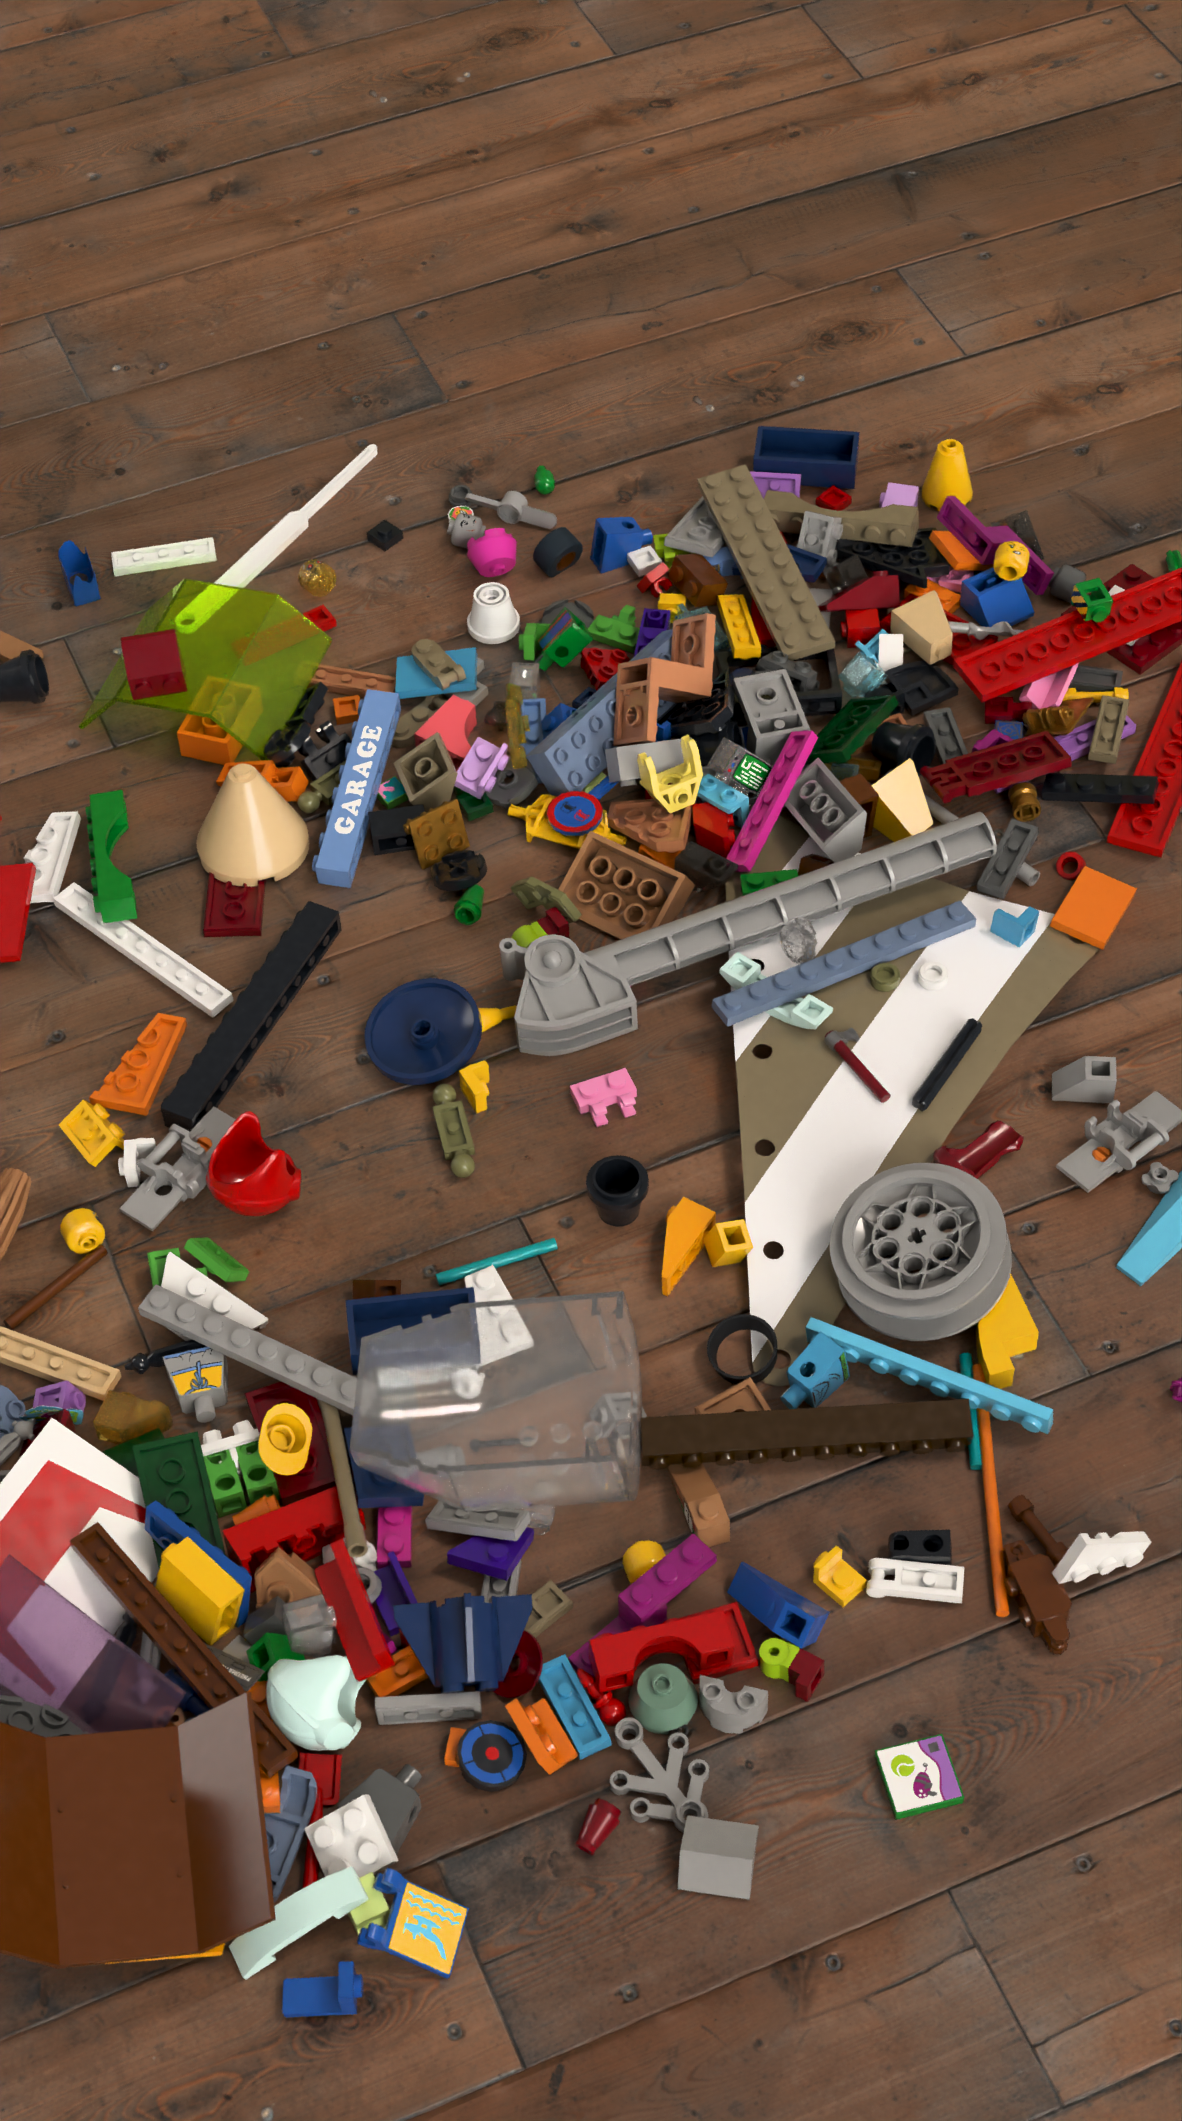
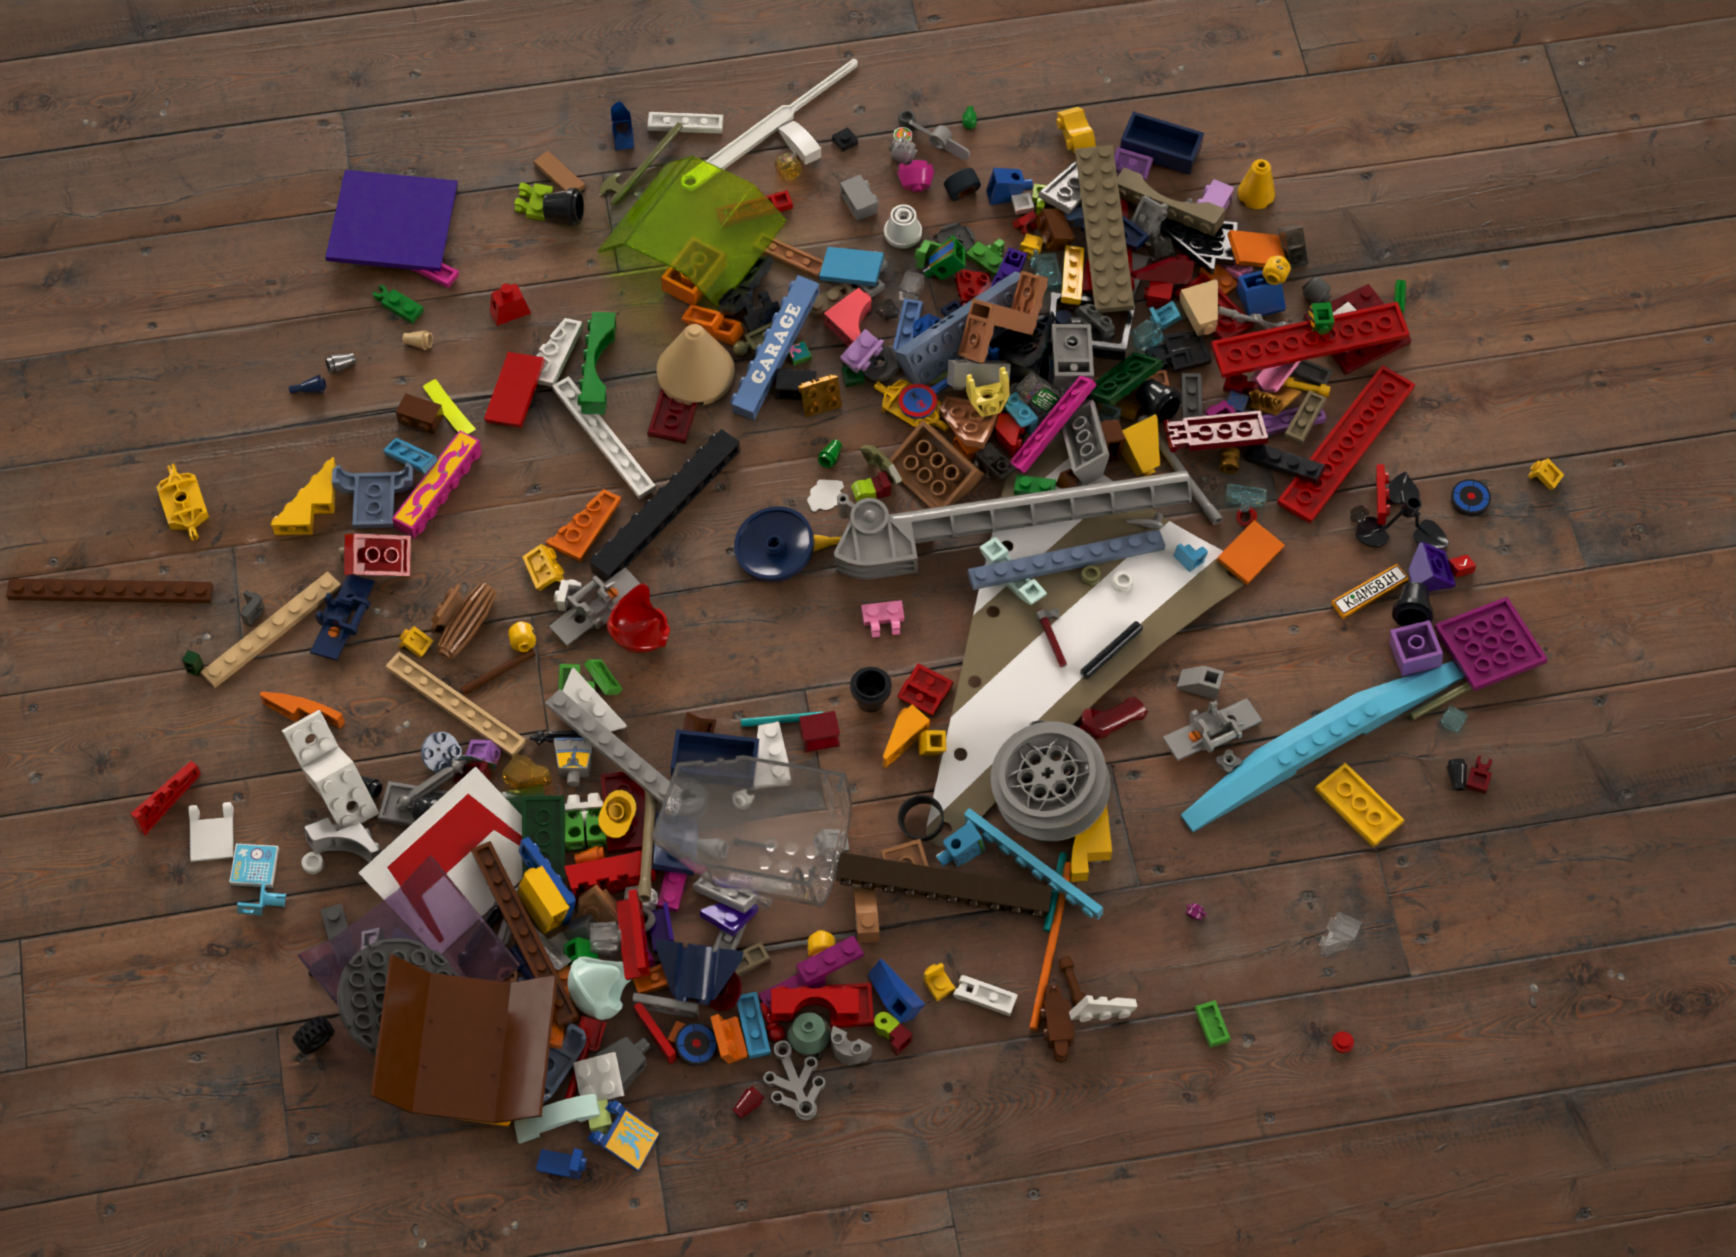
camera: 10 degrees right, 10 degrees up
(93, 650) = (611, 184): none -> olive piece
(154, 664) = (654, 227): dark red slope -> none
(327, 546) = (800, 142): none -> white slope
(346, 709) = (783, 278): orange tile -> none
(422, 595) = (859, 197): none -> light grey brick
(422, 1753) = (655, 1033): none -> red tile
(427, 773) = (824, 348): dark tan slope -> none
(437, 663) = (852, 260): dark tan plate -> none
(453, 1130) = (777, 619): olive plate -> none
(458, 870) = (828, 426): black tile -> none
(473, 1085) = (797, 587): yellow bracket -> none
(477, 959) = (824, 494): none -> white sticker
(516, 725) = (894, 322): clear yellow plate -> none
(557, 1263) = (819, 731): none -> dark red piece
(687, 463) = (1075, 129): none -> yellow brick
(695, 1175) = (925, 689): none -> red slope
(717, 1857) = (814, 1138): light grey slope -> none
(798, 940) = (1039, 536): clear rock -> none
(834, 499) = (1172, 181): red tile -> none
(890, 651) = (1172, 320): white sticker -> none
(919, 1776) = (950, 1118): tile -> none
(921, 1546) = (995, 975): black leg -> none
(941, 897) = (1148, 523): none -> light grey bar
(984, 541) = (1266, 247): magenta bracket -> none
(1008, 859) = (1202, 504): dark grey plate -> none
(1064, 839) = (1245, 496): none -> clear light blue plate

